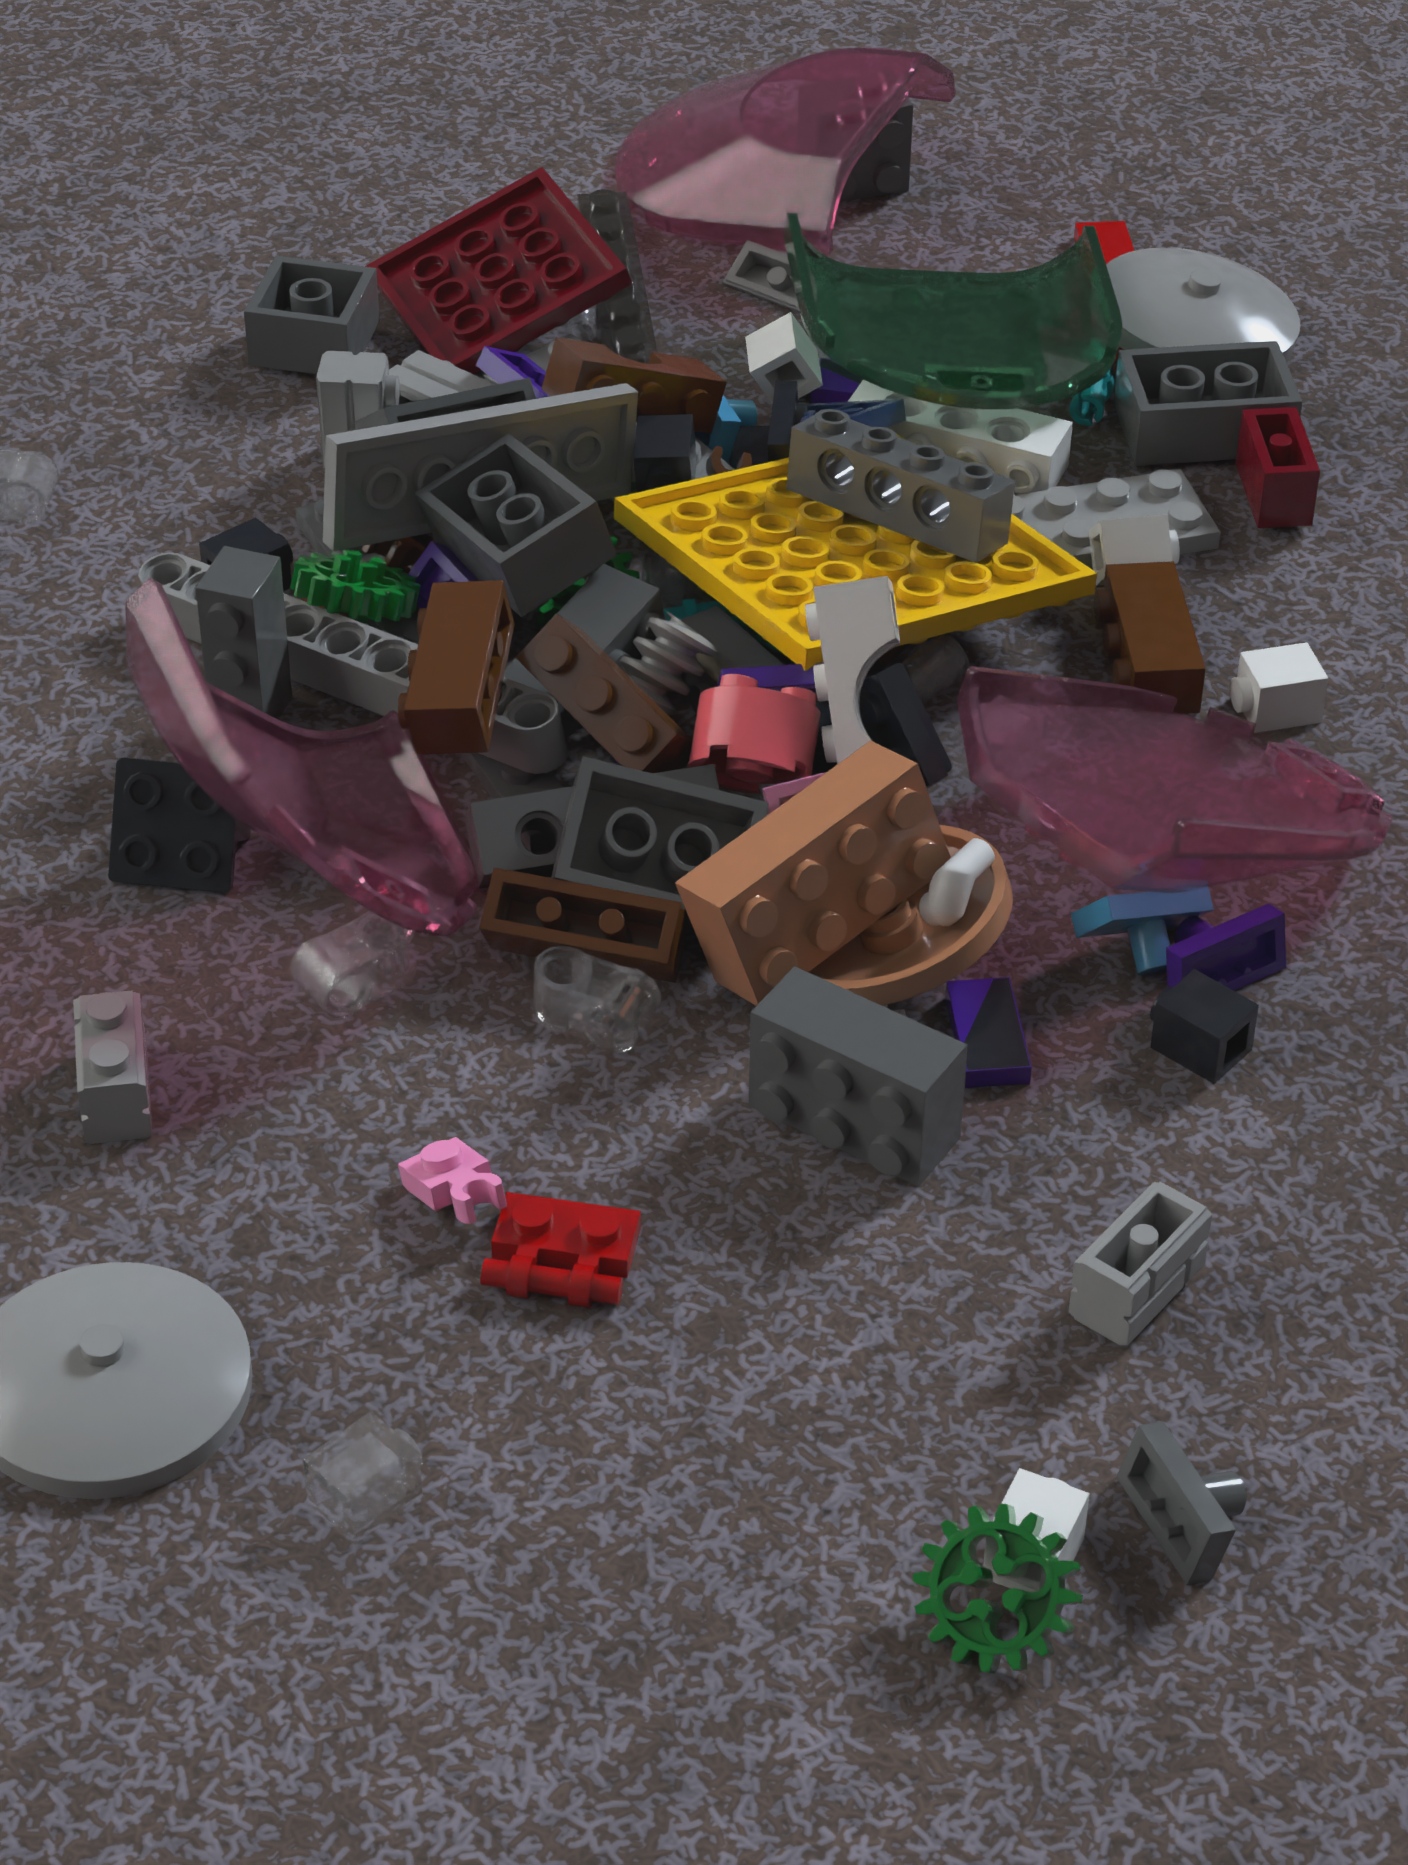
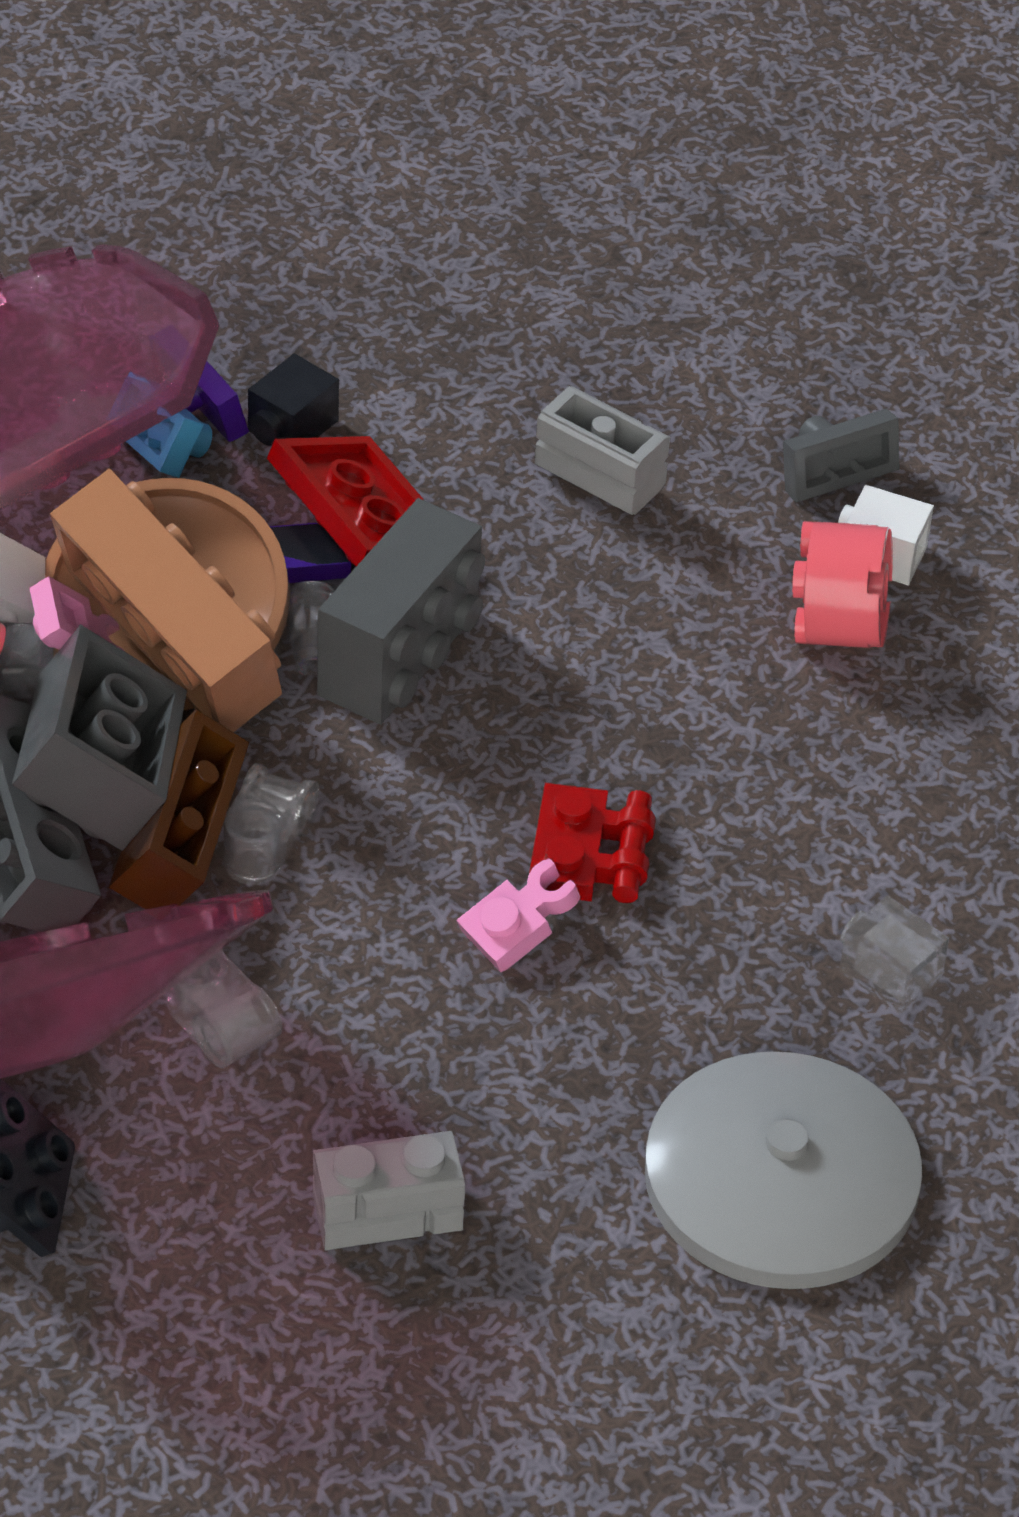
camera: 95 degrees left, 5 degrees up
(917, 1460) = (843, 584): none -> coral brick
(954, 882) = (174, 509): white arm -> none
(976, 1627) = (959, 546): green gear -> none
(1051, 1070) = (346, 487): none -> red plate

